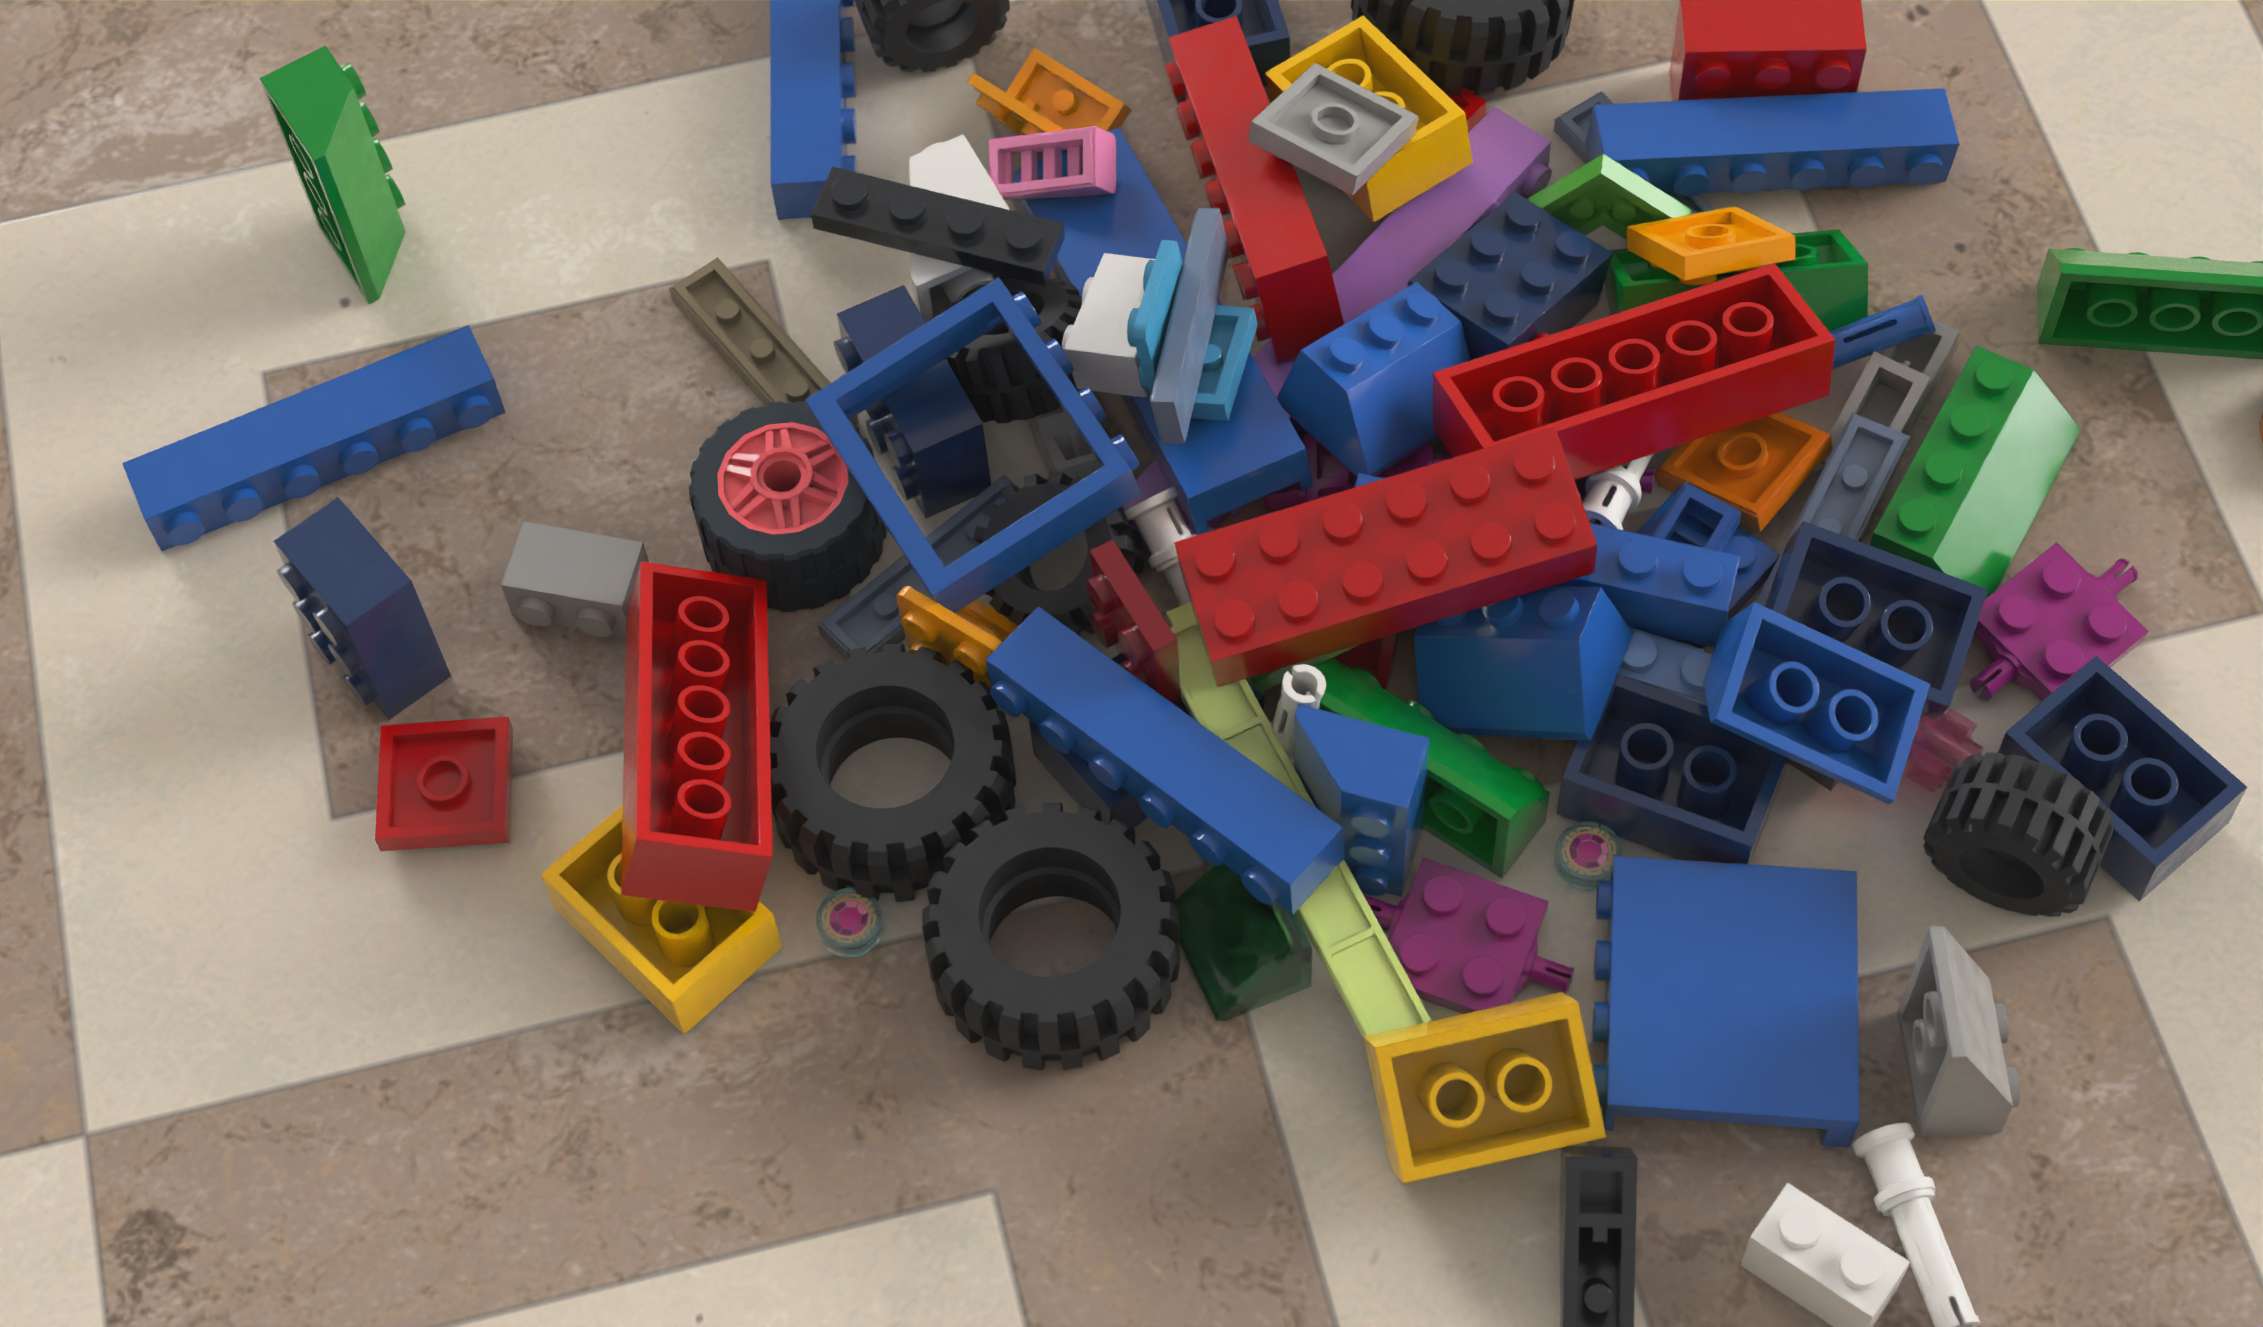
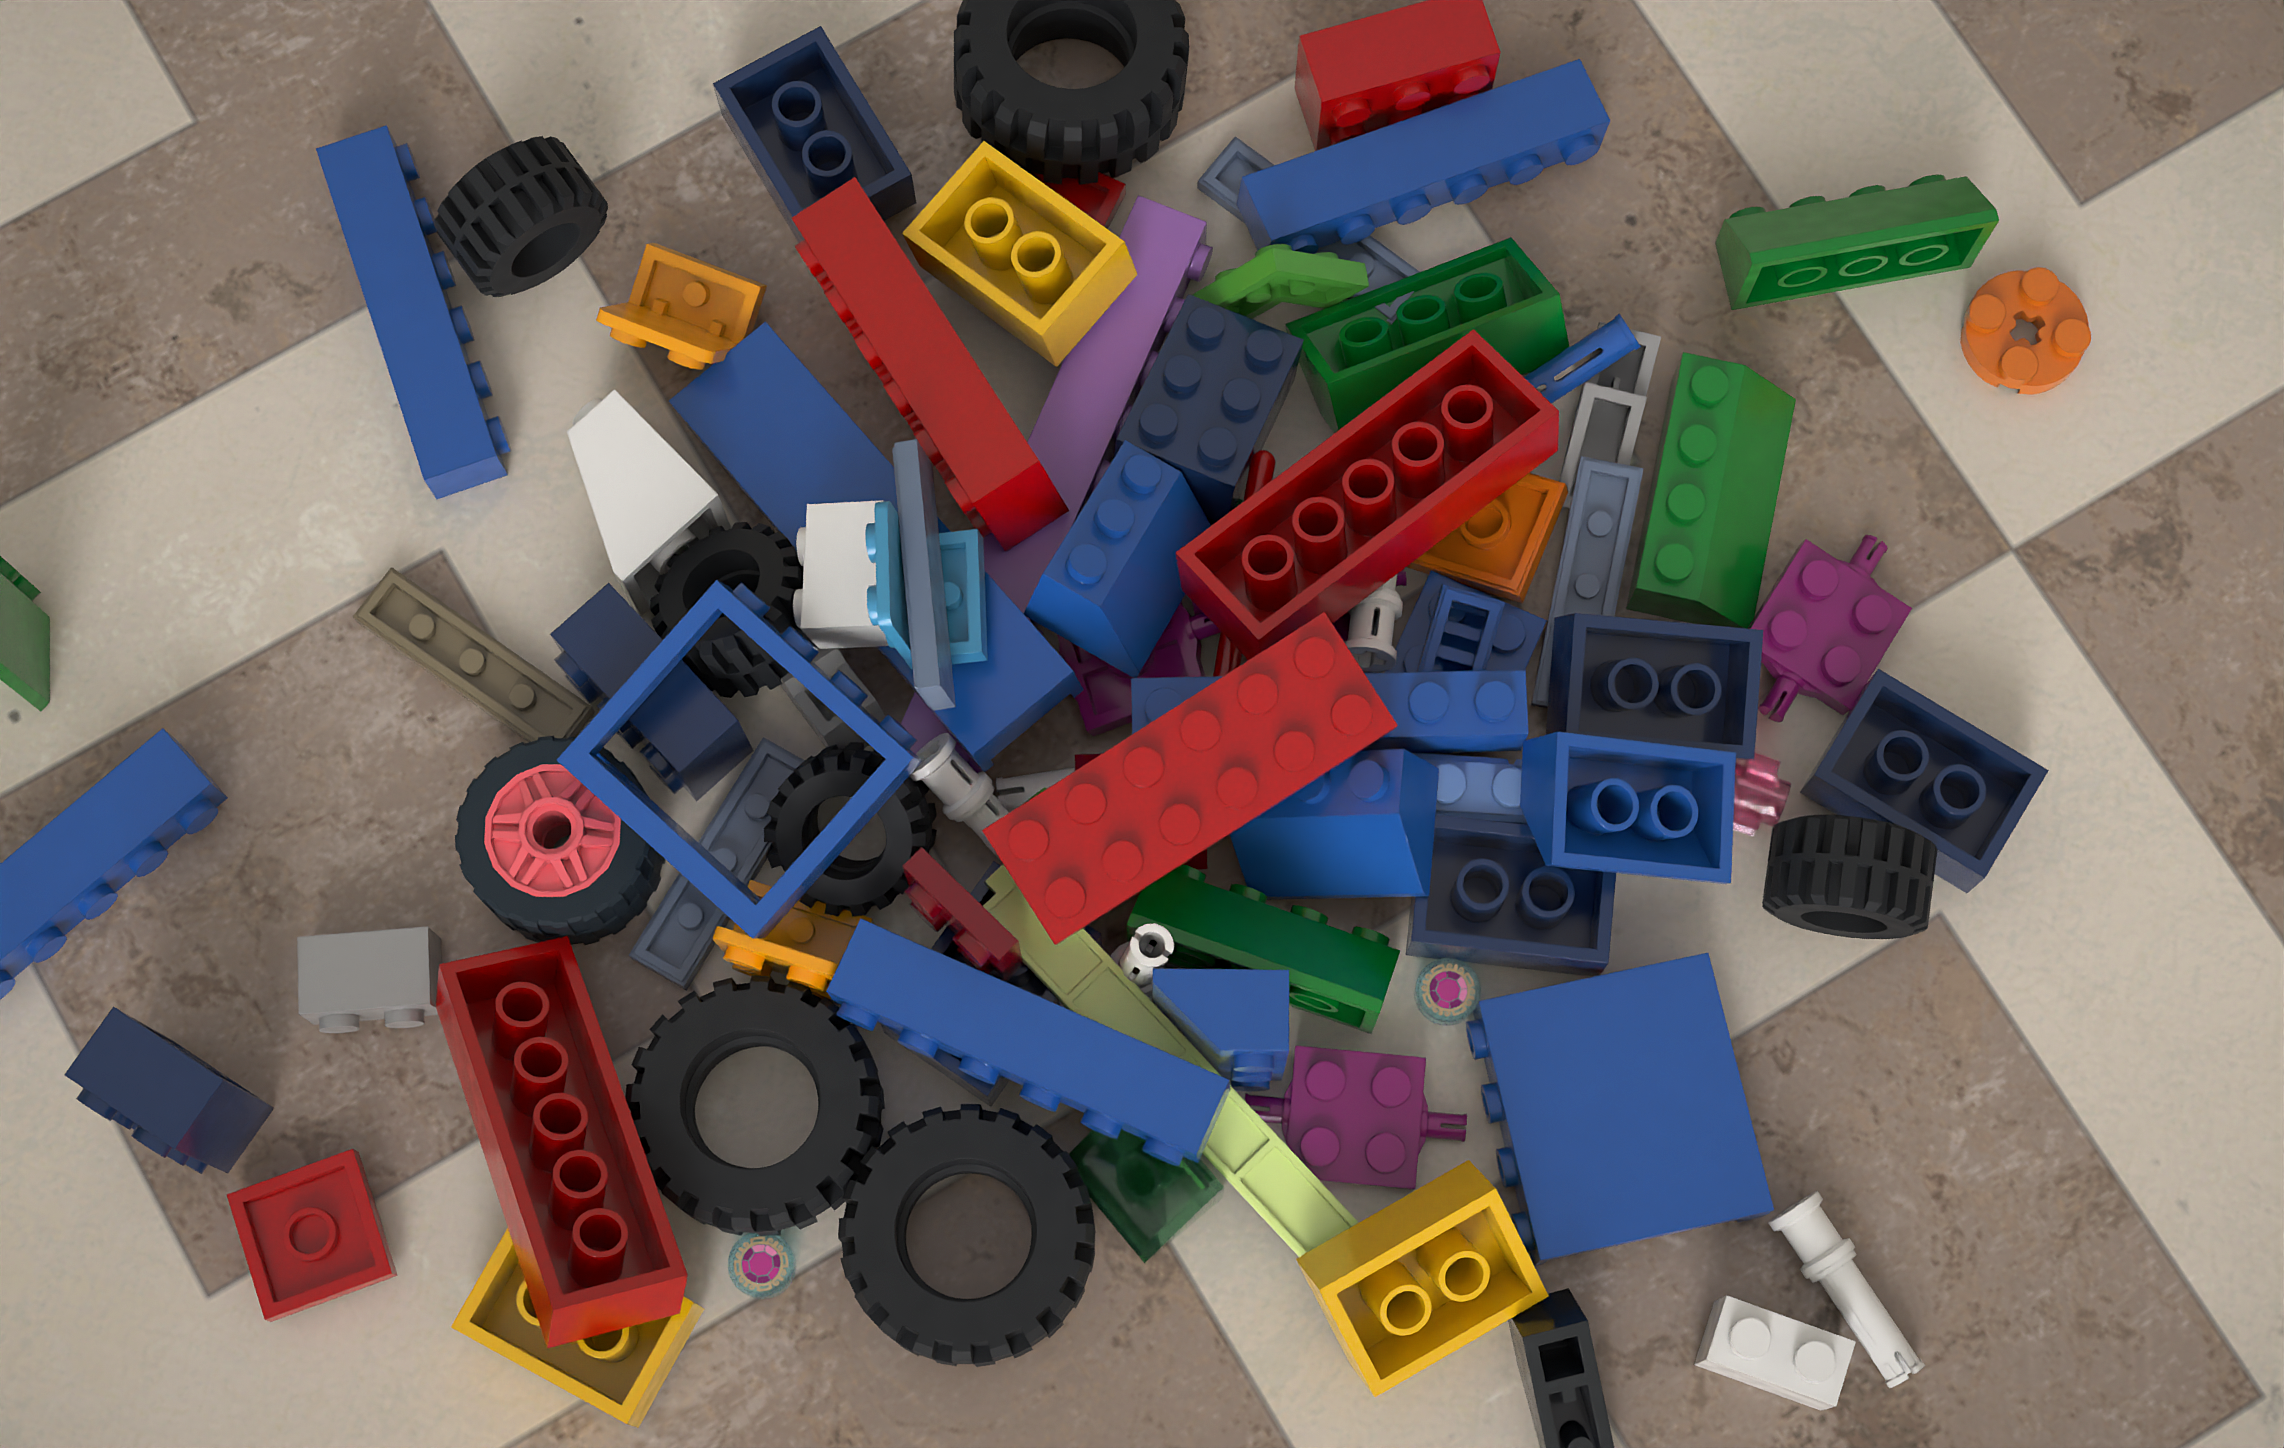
camera: 20 degrees left, 15 degrees up
(938, 226) = (623, 508): black plate -> none
(1089, 164) = (751, 381): bright pink slope -> none
(1333, 128) = (1000, 305): light grey plate -> none
(1710, 244) = (1400, 310): light orange plate -> none
(1955, 1043) = (1841, 1106): light grey slope -> none

